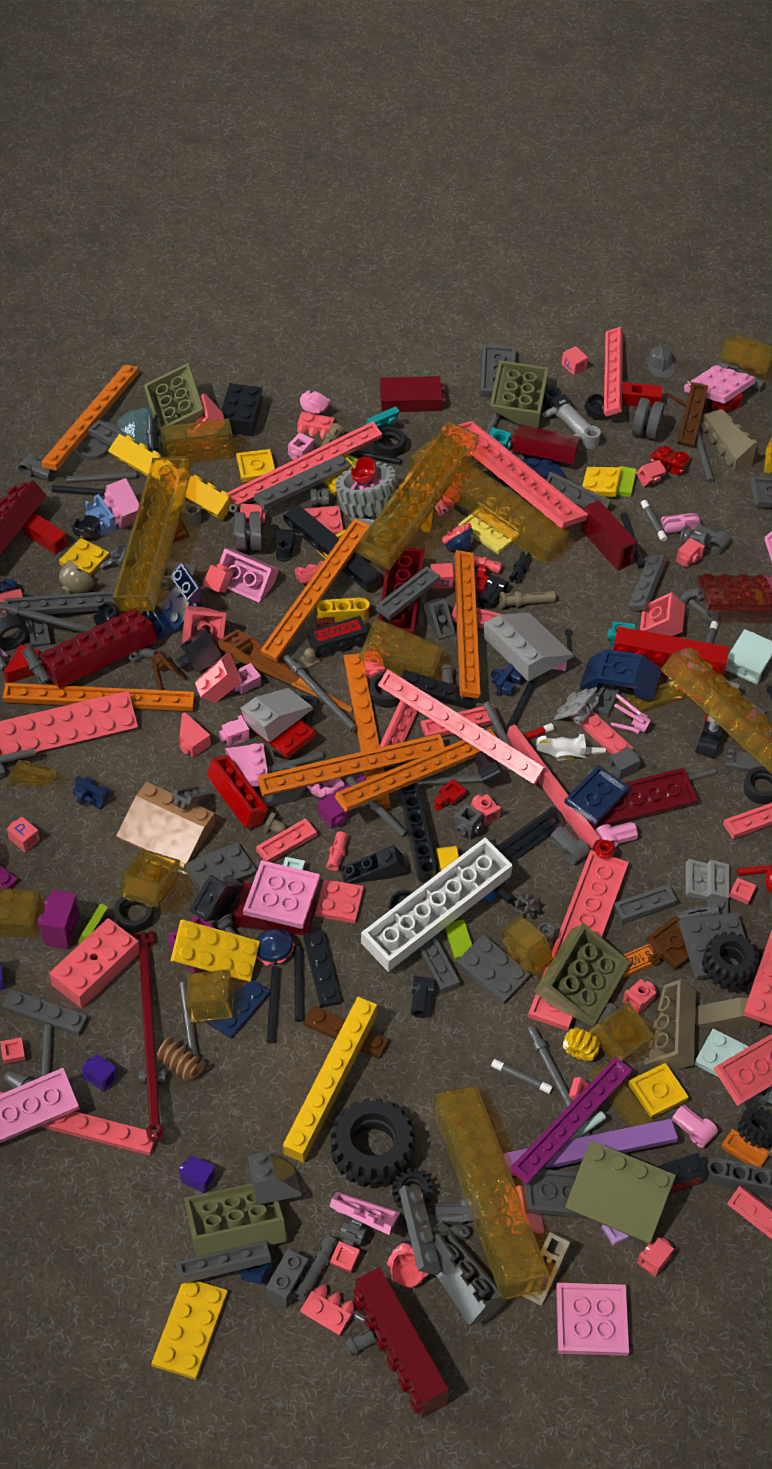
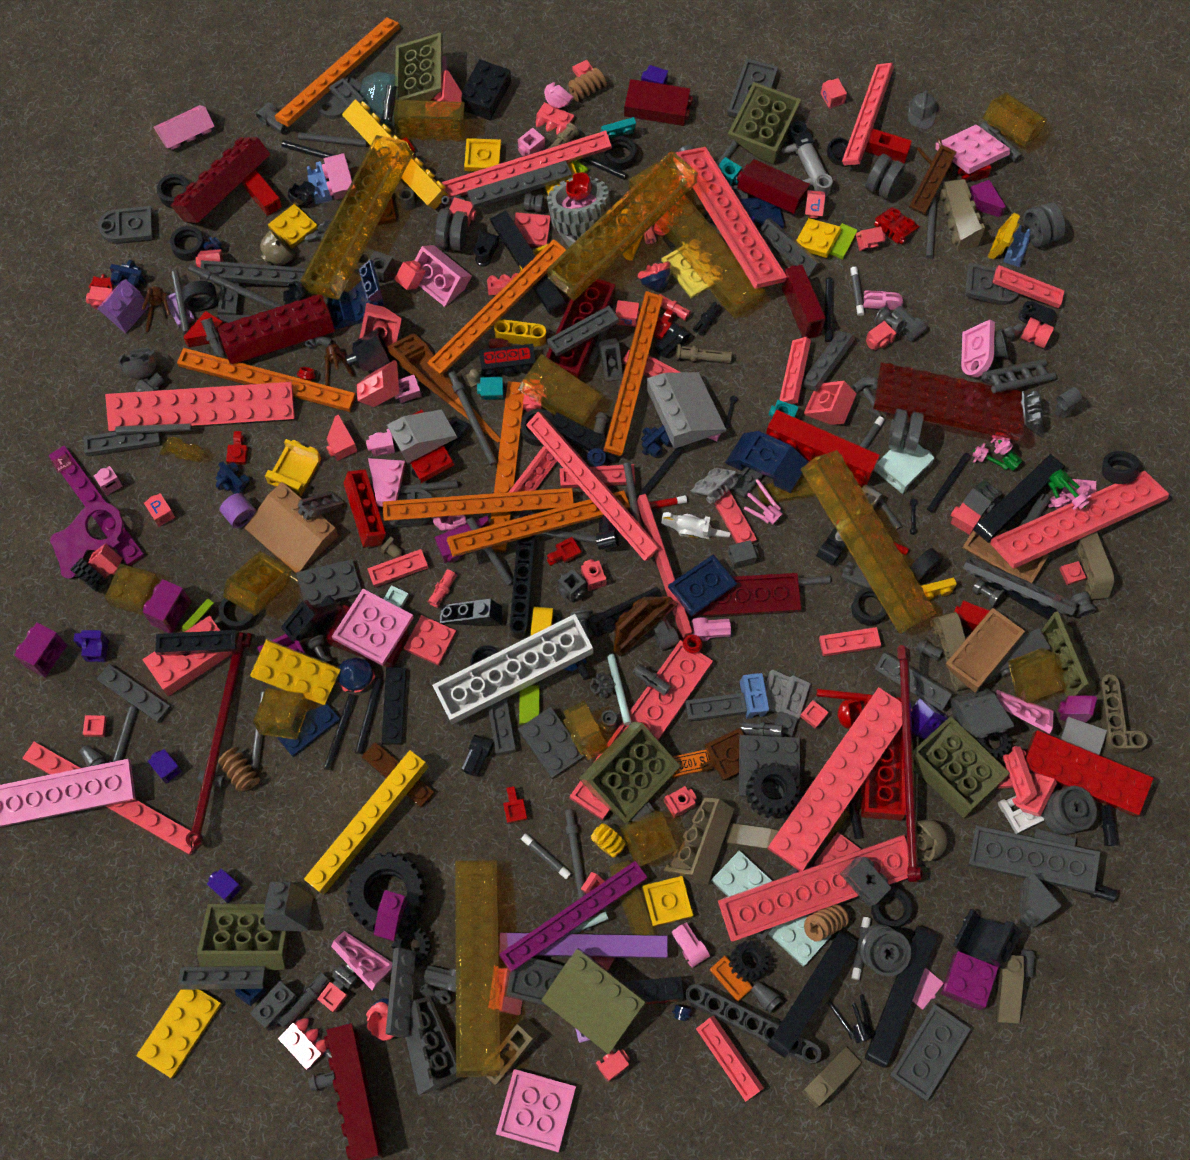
camera: 15 degrees right, 15 degrees up
(87, 766) = (238, 452): none -> red plate
(104, 942) = (196, 642): none -> black plate
(106, 817) = (237, 509): none -> medium lavender piece
(138, 683) = (306, 373): none -> red plate
(153, 766) = (294, 467): none -> yellow panel
(330, 380) = (582, 68): none -> coral plate
(330, 663) = (490, 388): none -> teal brick
(339, 388) = (585, 83): none -> medium nougat piece
(387, 1153) = (389, 915): none -> magenta slope
(402, 370) = (655, 75): none -> dark purple brick
(455, 703) = (596, 457): none -> dark blue plate
(475, 1037) = (514, 808): none -> red plate
(545, 906) = (619, 689): none -> light aqua bar
(547, 837) = (639, 621): none -> reddish brown wedge
(562, 884) = (651, 679): none -> dark grey pin
(589, 452) = (814, 203): none -> coral brick
(619, 595) = (795, 370): none -> coral plate
(680, 883) = (754, 694): none -> medium blue hinge
(708, 1191) = (682, 1012): none -> dark blue plate
(746, 622) = (906, 431): none -> dark grey wheel
(749, 422) = (987, 199): none -> magenta slope

